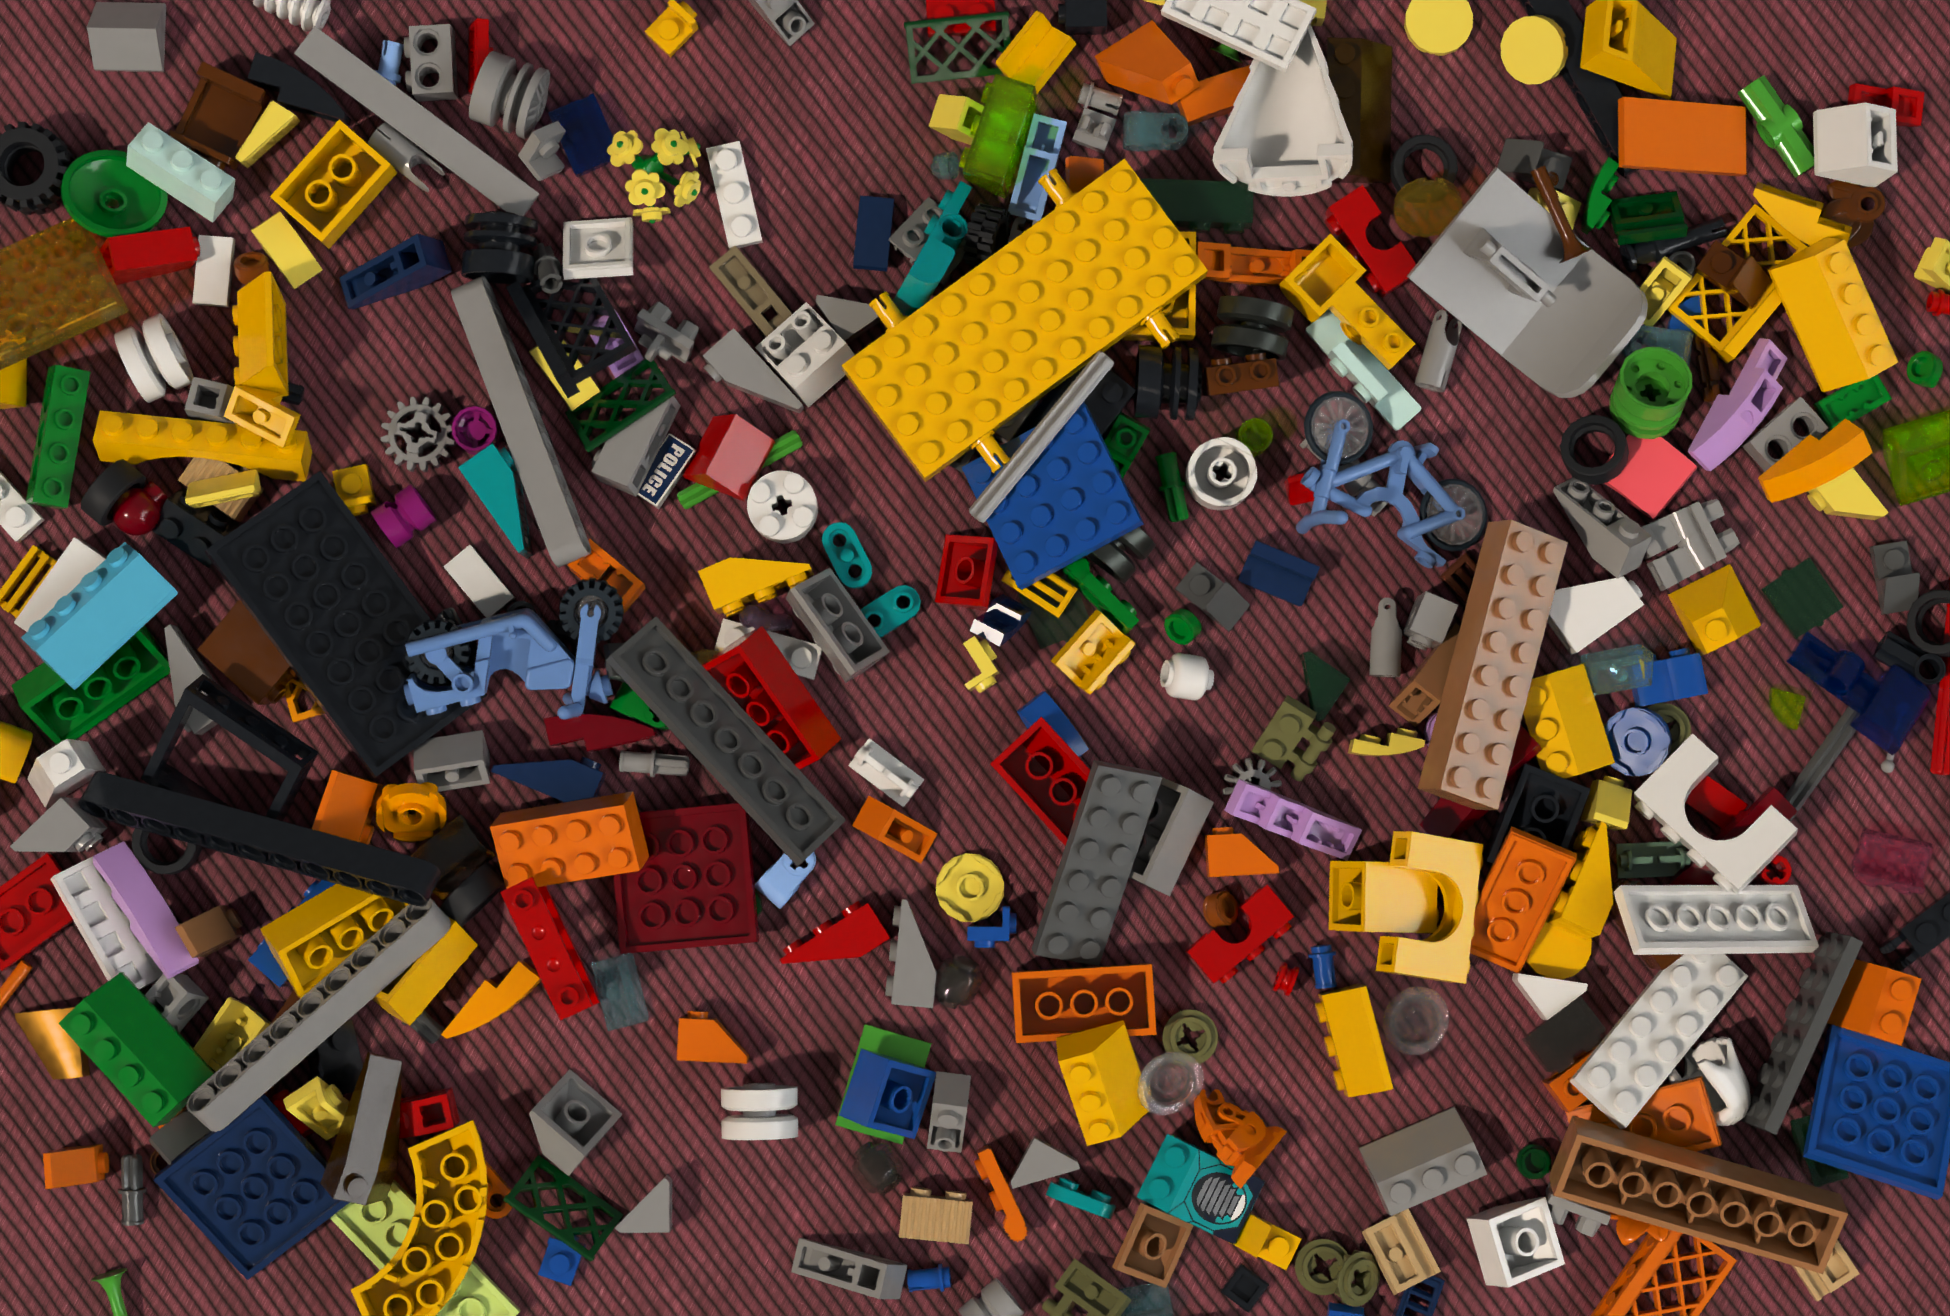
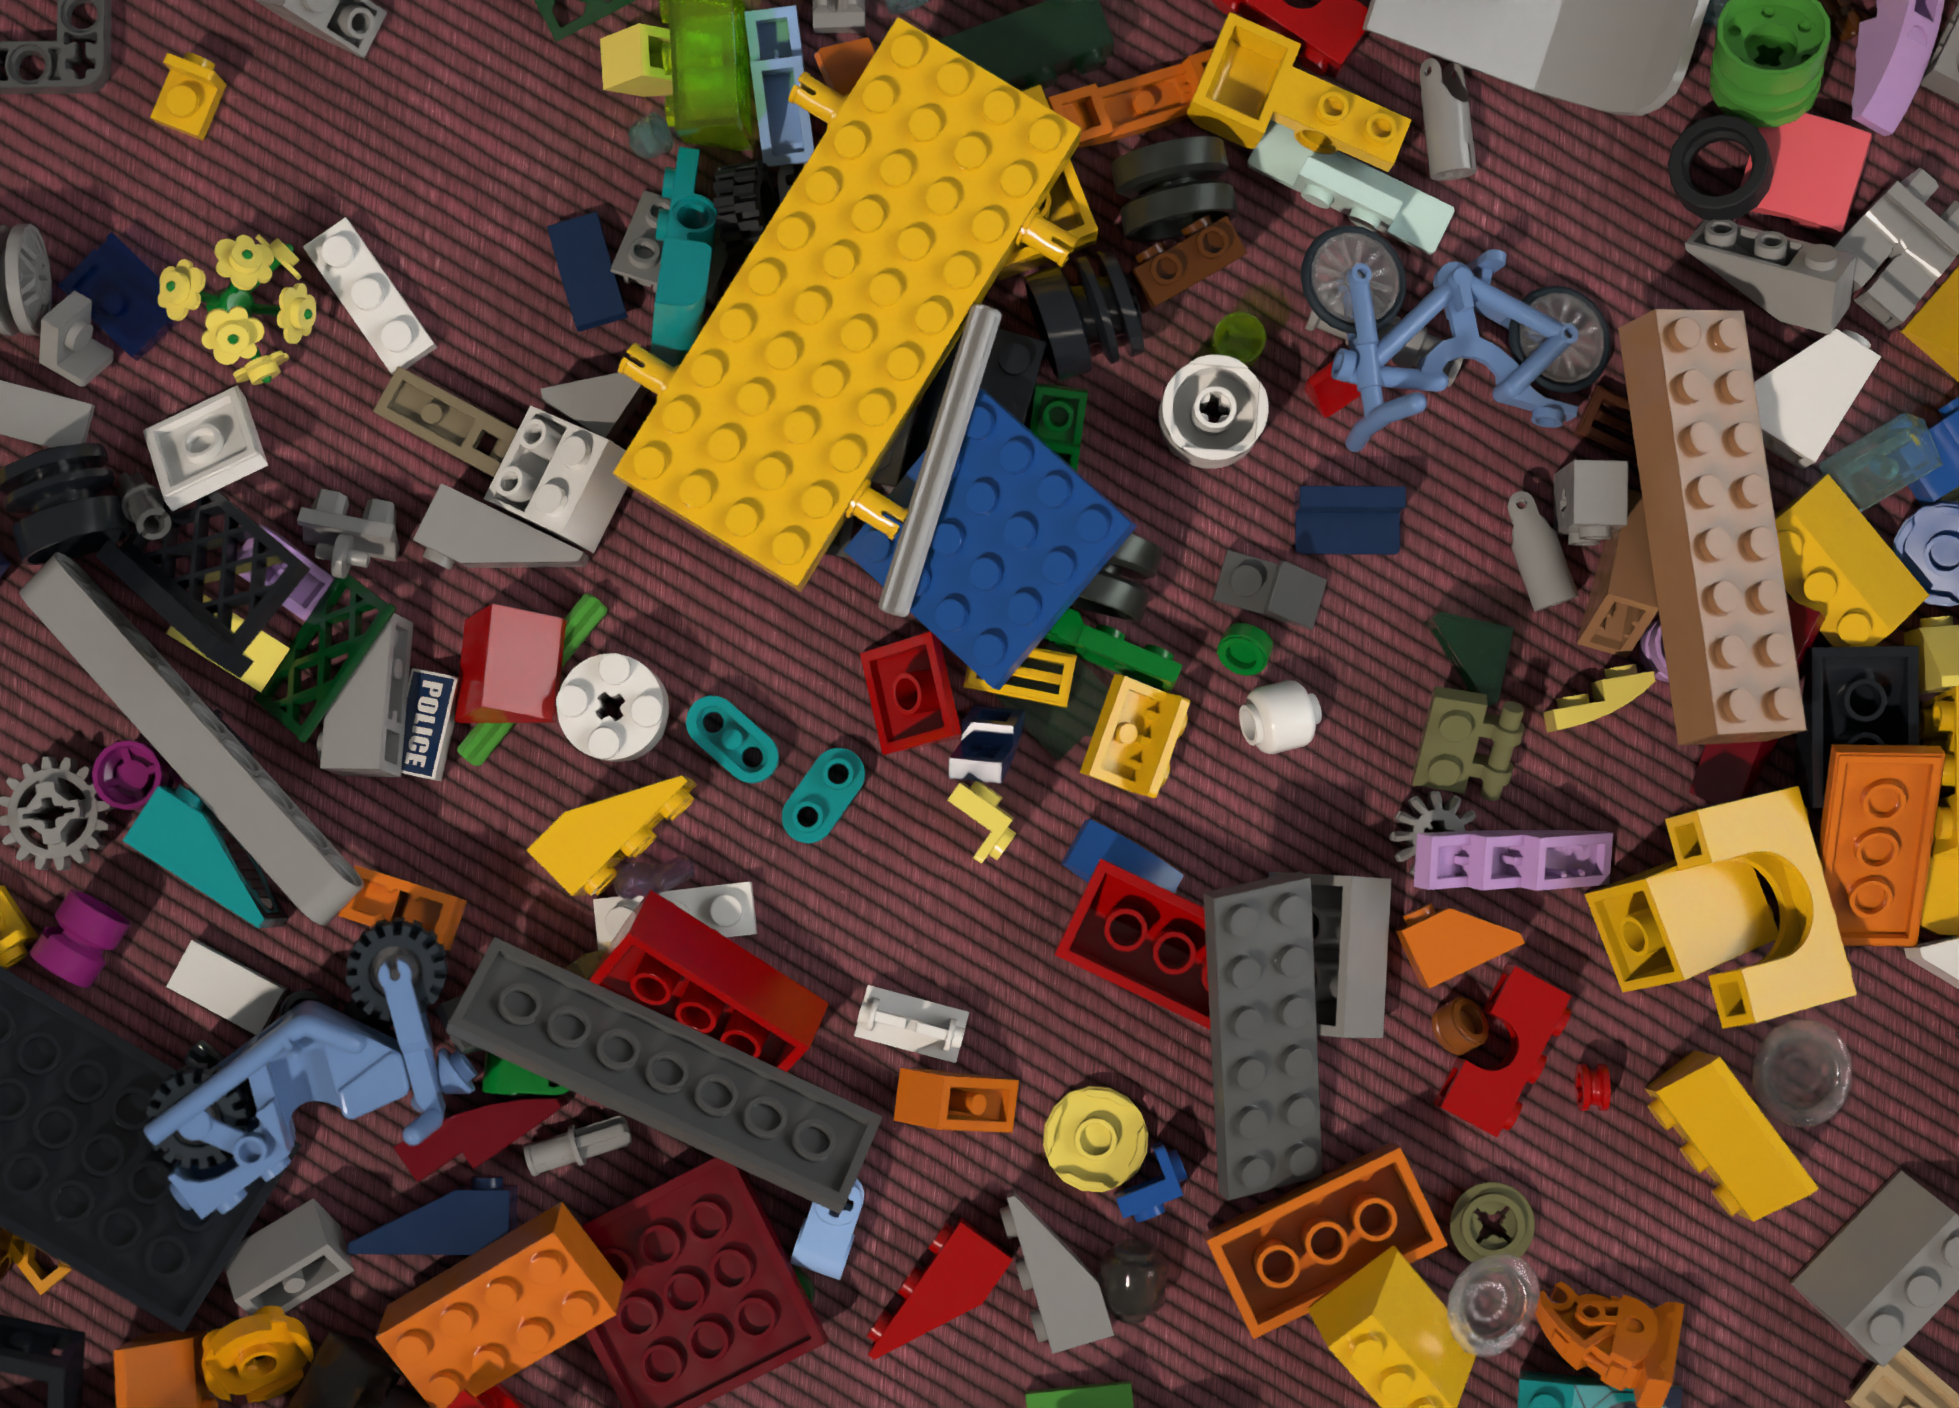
camera: 20 degrees left, 0 degrees up
(836, 624) = (757, 843): light grey slope -> none
(1172, 487) = (1150, 458): green axle -> none
(1323, 966) = (1637, 1047): blue pin -> none

